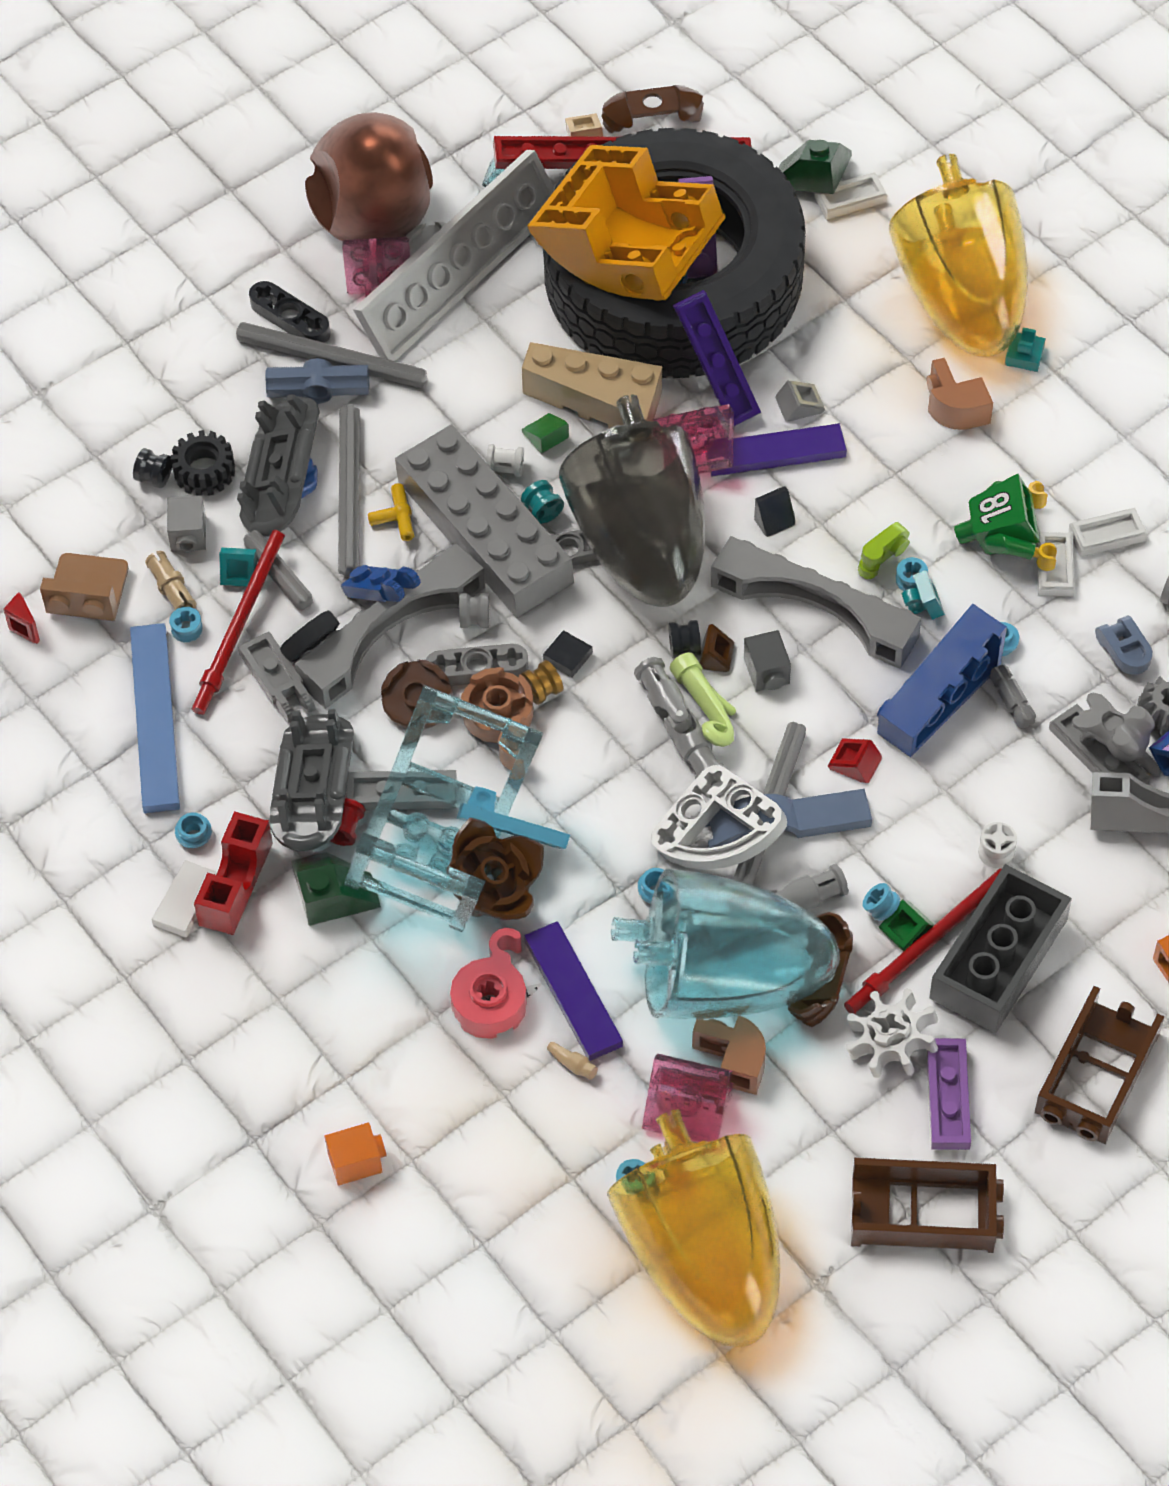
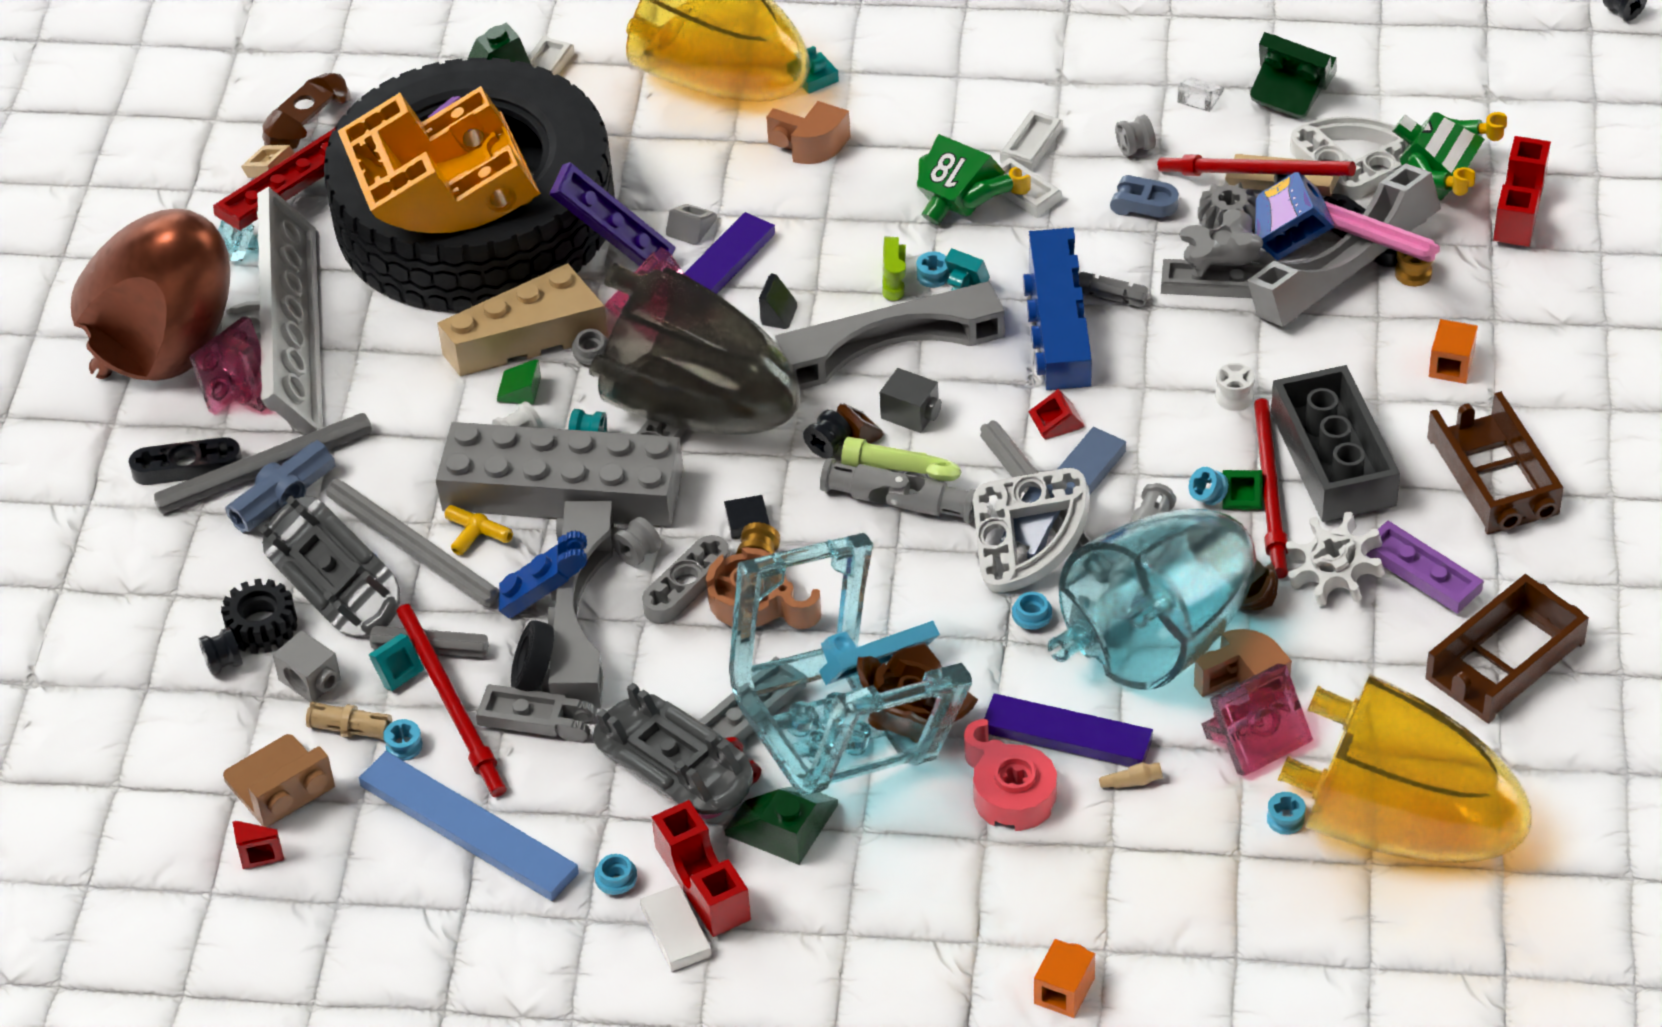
camera: 45 degrees left, 10 degrees down
(404, 685) = (670, 634): reddish brown tile -> none

